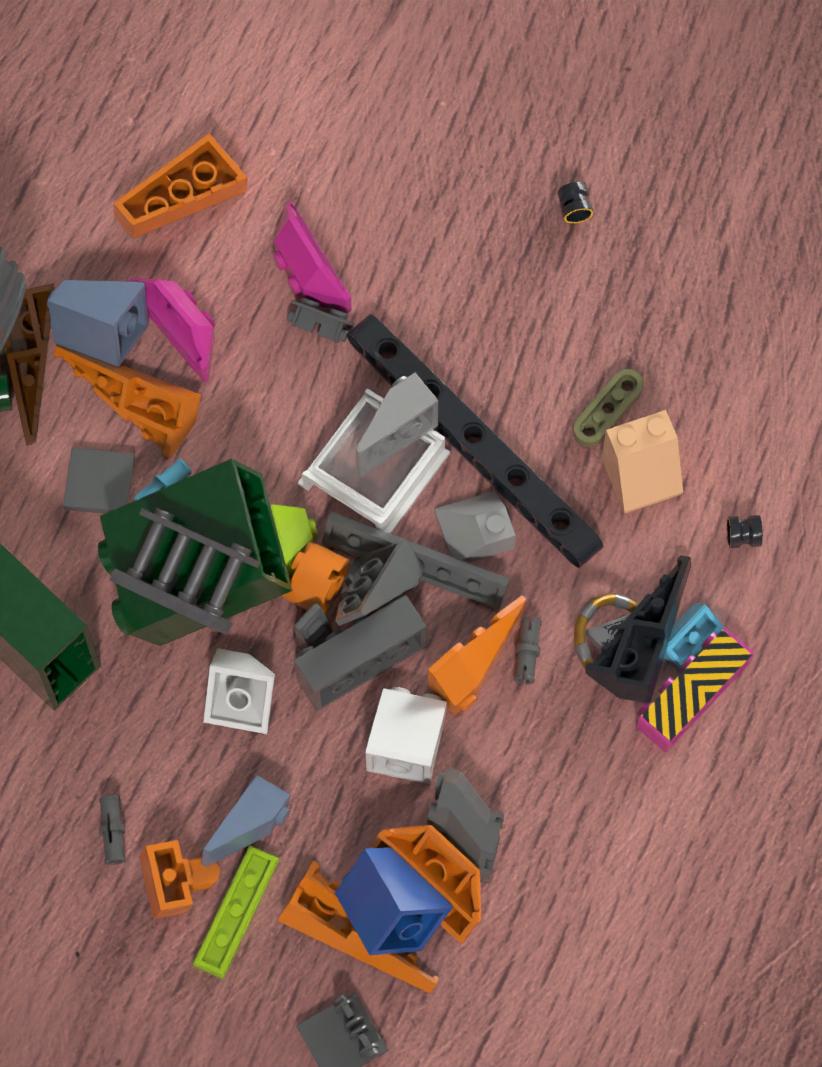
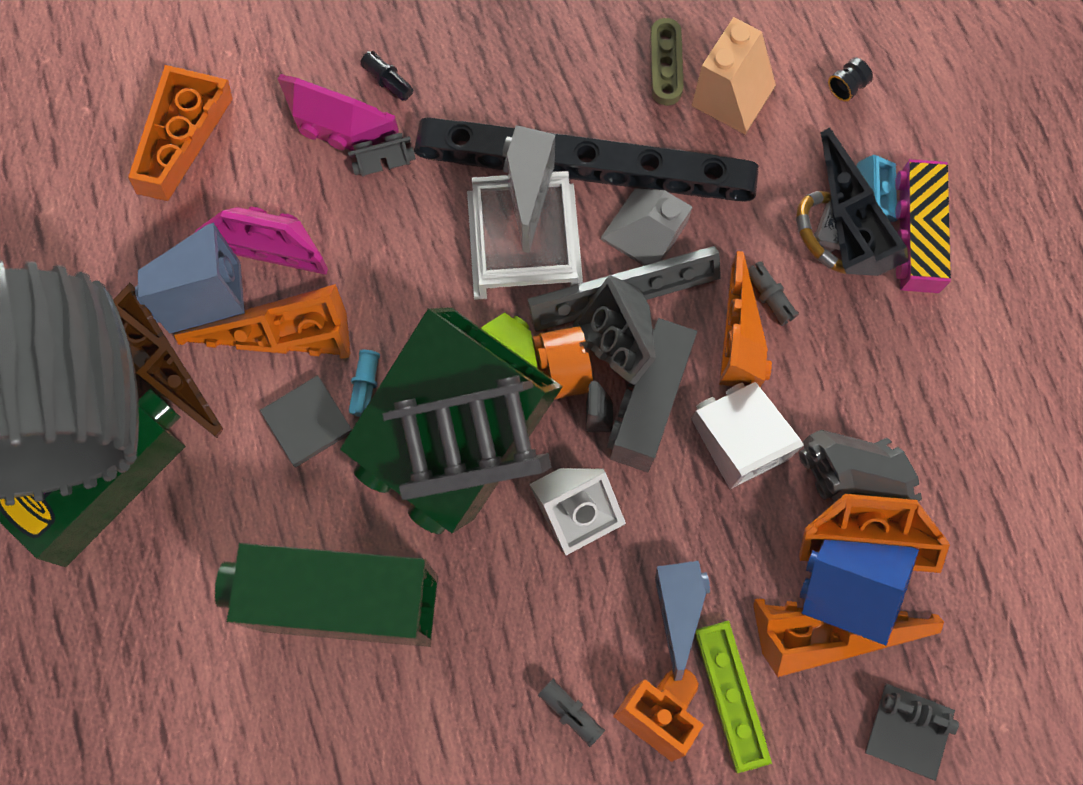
camera: 40 degrees left, 5 degrees up
(376, 259) = (386, 75): none -> black axle

